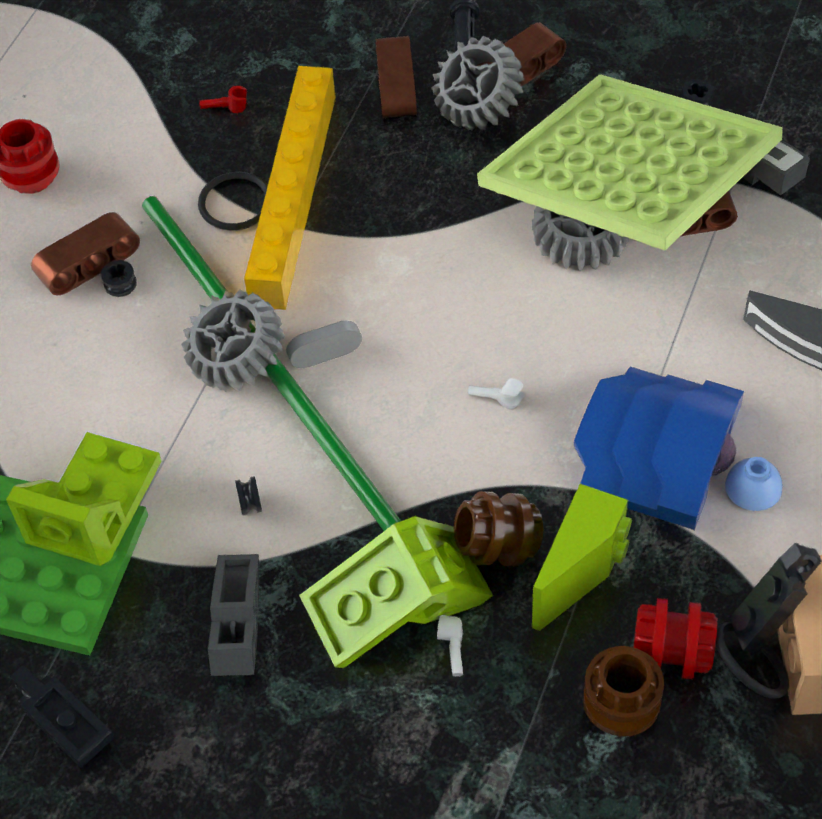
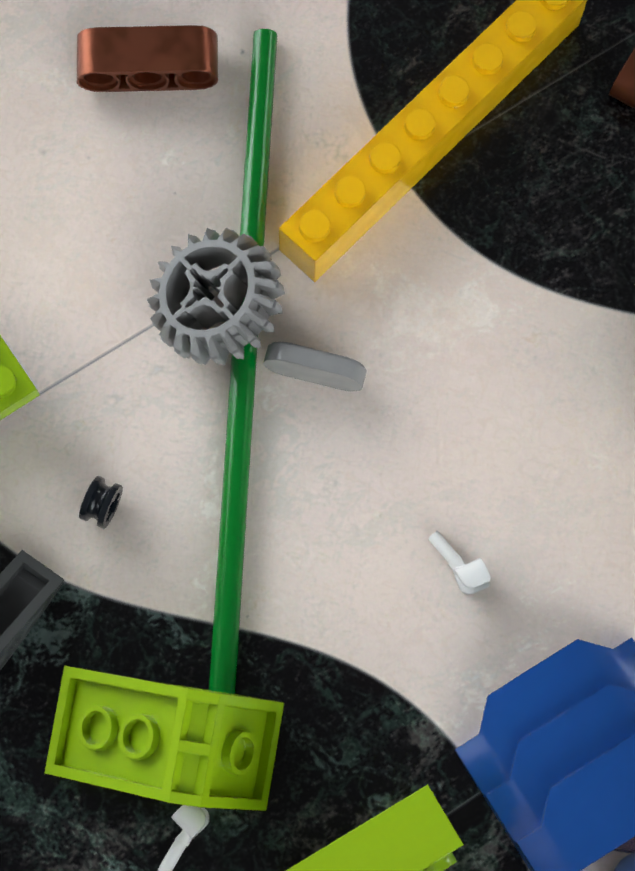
camera: 30 degrees right, 20 degrees up
(116, 269) = (170, 101): black bush -> none
(228, 176) = (343, 57): black tyre -> none
(498, 529) = (313, 749): reddish brown piece -> none

